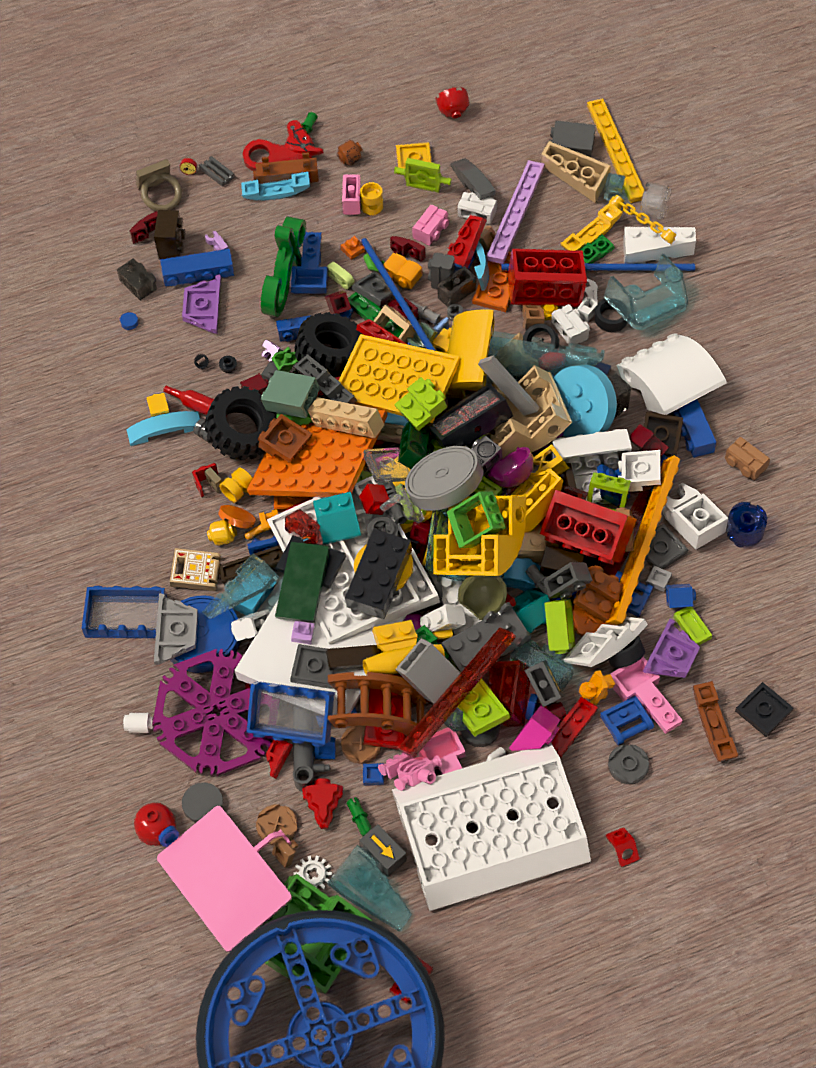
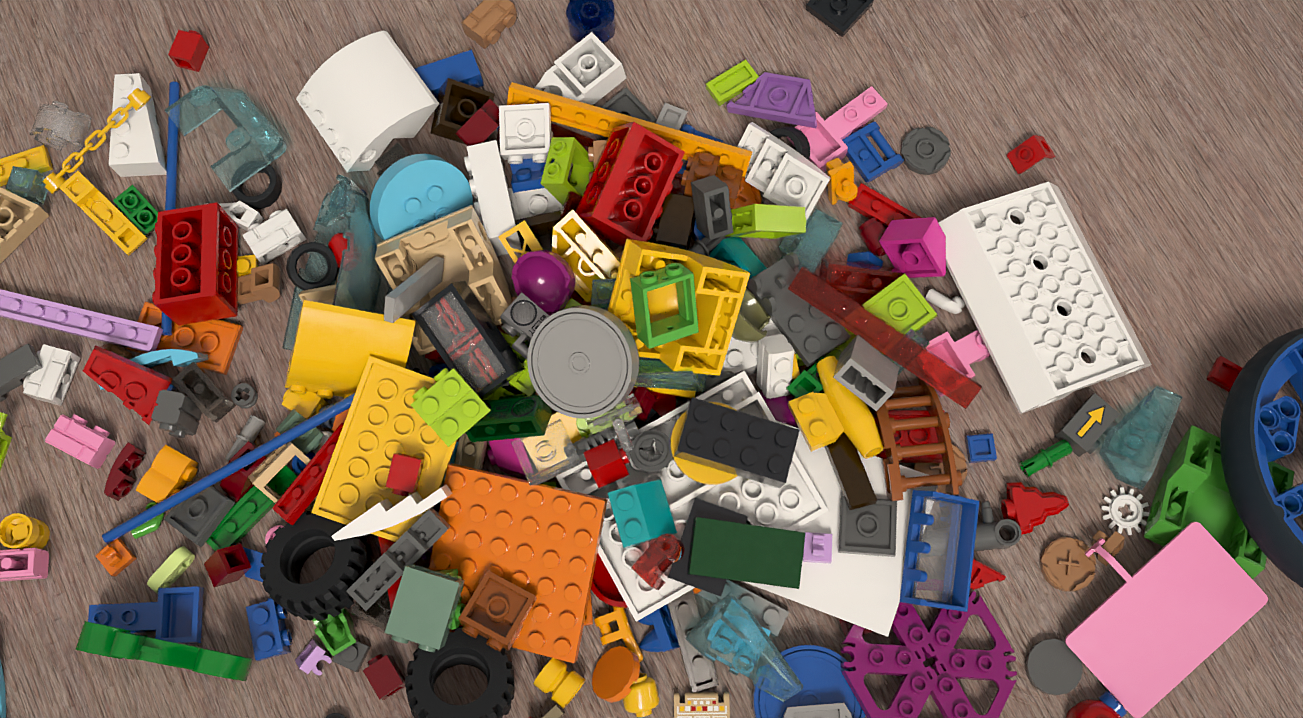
camera: 95 degrees left, 15 degrees up
(249, 625) = (800, 625): white brick -> none
(346, 417) = (468, 518): tan brick -> none
(351, 370) = (385, 515): none -> white slope
(378, 380) = (404, 474): none -> red brick
(410, 770) = (998, 379): bright pink piece -> none
(442, 324) = (271, 414): light blue slope -> none
(544, 683) = (850, 236): dark grey brick -> none
(680, 595) = (698, 93): blue brick -> none
(713, 722) = (867, 57): dark orange slope -> none
(720, 272) = (188, 50): none -> red brick

